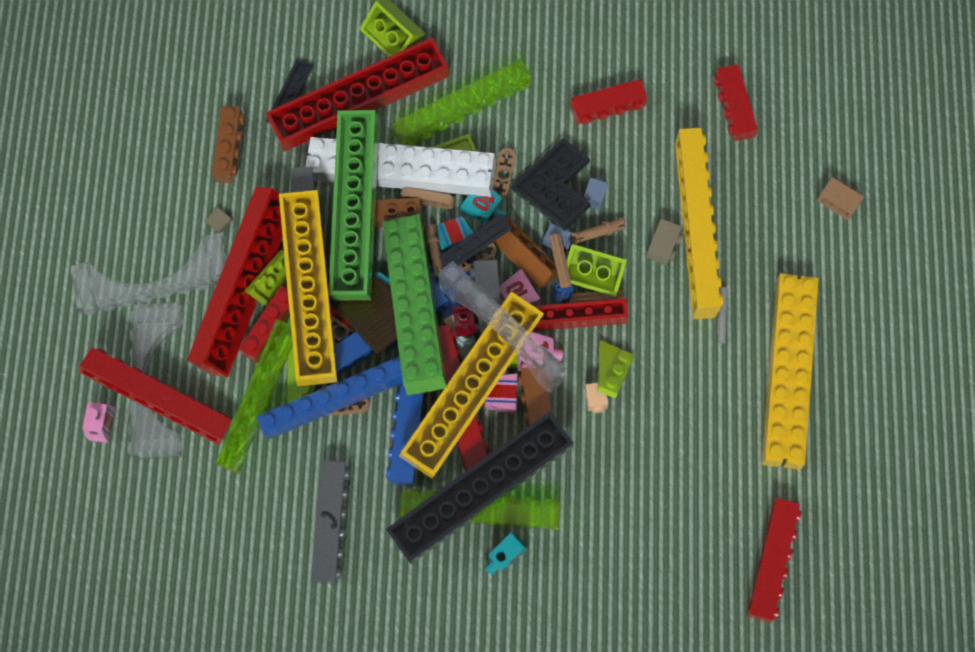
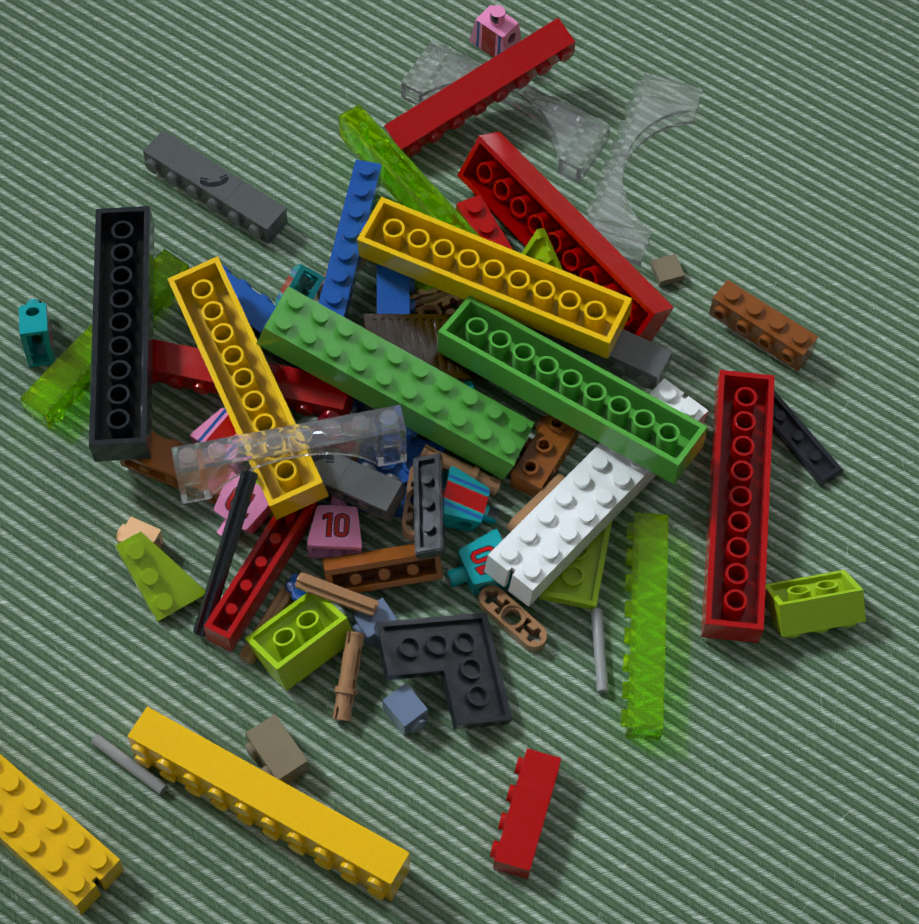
camera: 120 degrees right, 10 degrees down
(380, 409) = (302, 280): none -> teal torso
(491, 121) = (599, 651): none -> light grey bar
(579, 331) = (226, 548): none -> black axle

